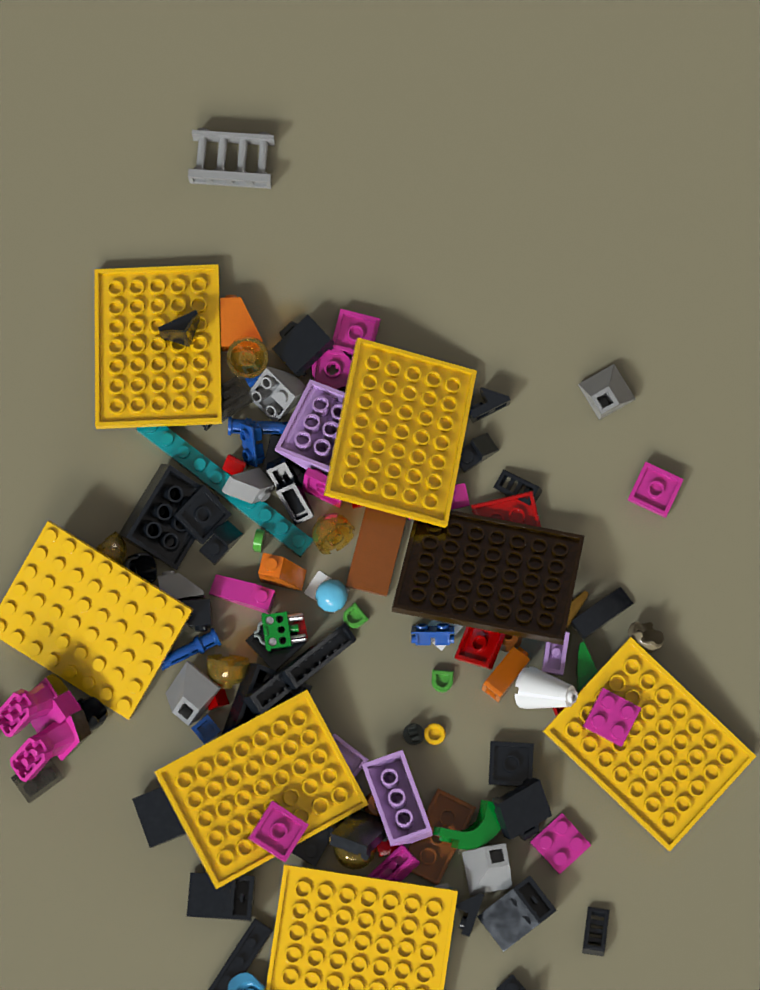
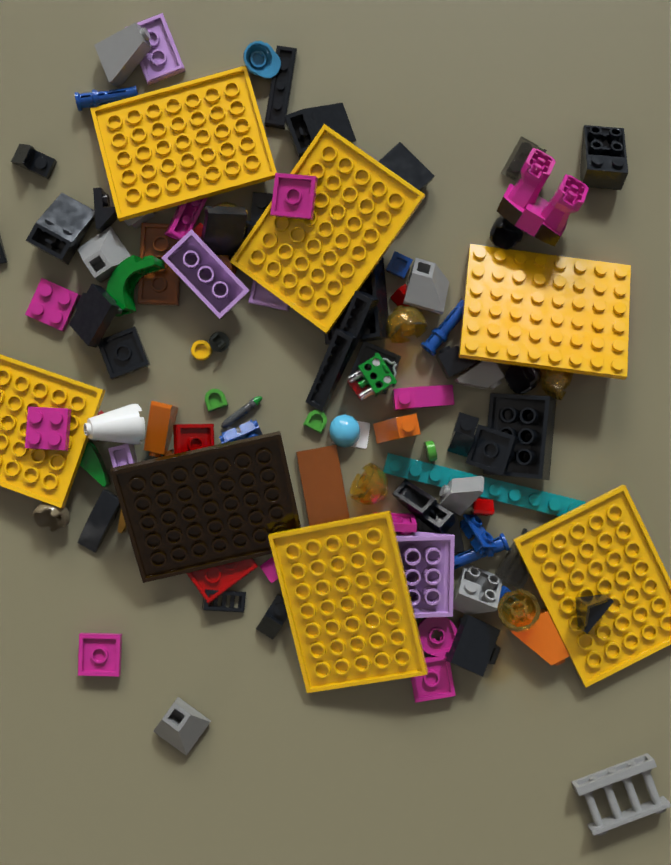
camera: 150 degrees right, 10 degrees up
(407, 660) = (253, 403): none -> dark grey piece
(493, 402) = (279, 670): black slope -> none

